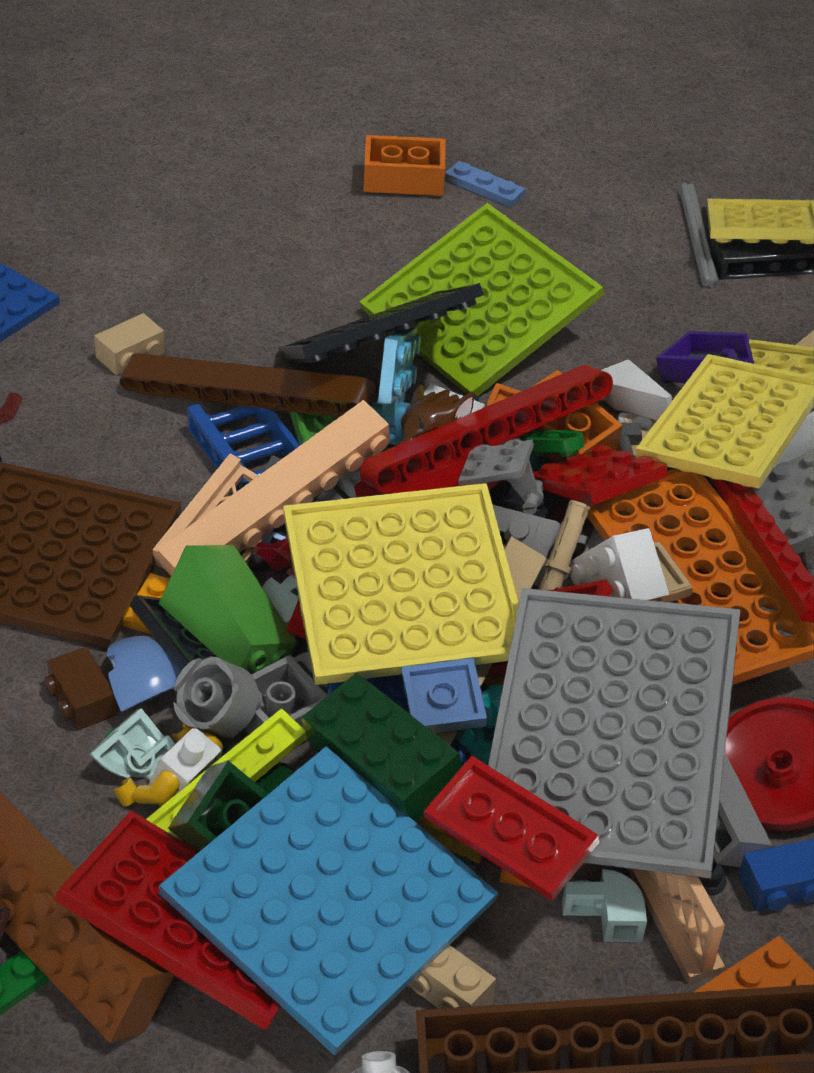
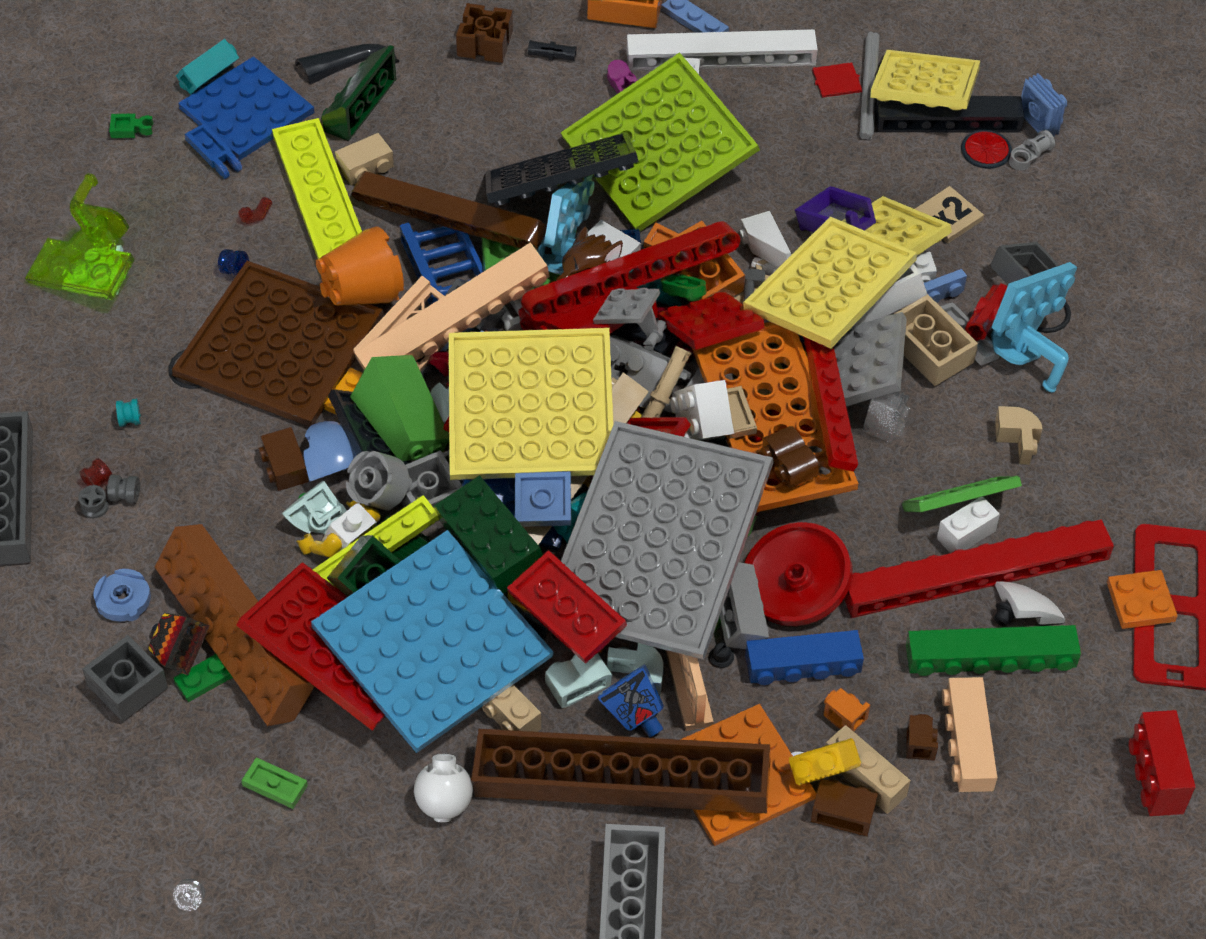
camera: 10 degrees right, 10 degrees up
(72, 251) = (330, 62): none -> black animal
(84, 390) = (316, 185): none -> neon yellow plate
(114, 278) = (360, 94): none -> dark green slope
(152, 456) = (361, 270): none -> orange cone
(250, 208) = (484, 33): none -> reddish brown brick
(330, 223) = (552, 50): none -> black pin
(414, 240) = (620, 75): none -> magenta piece
(528, 928) = (575, 680): none -> light aqua brick
(529, 207) = (724, 49): none -> white brick
(618, 948) = (634, 701): none -> blue torso
(659, 232) = (837, 80): none -> red piece
(760, 620) = (791, 457): none -> reddish brown brick

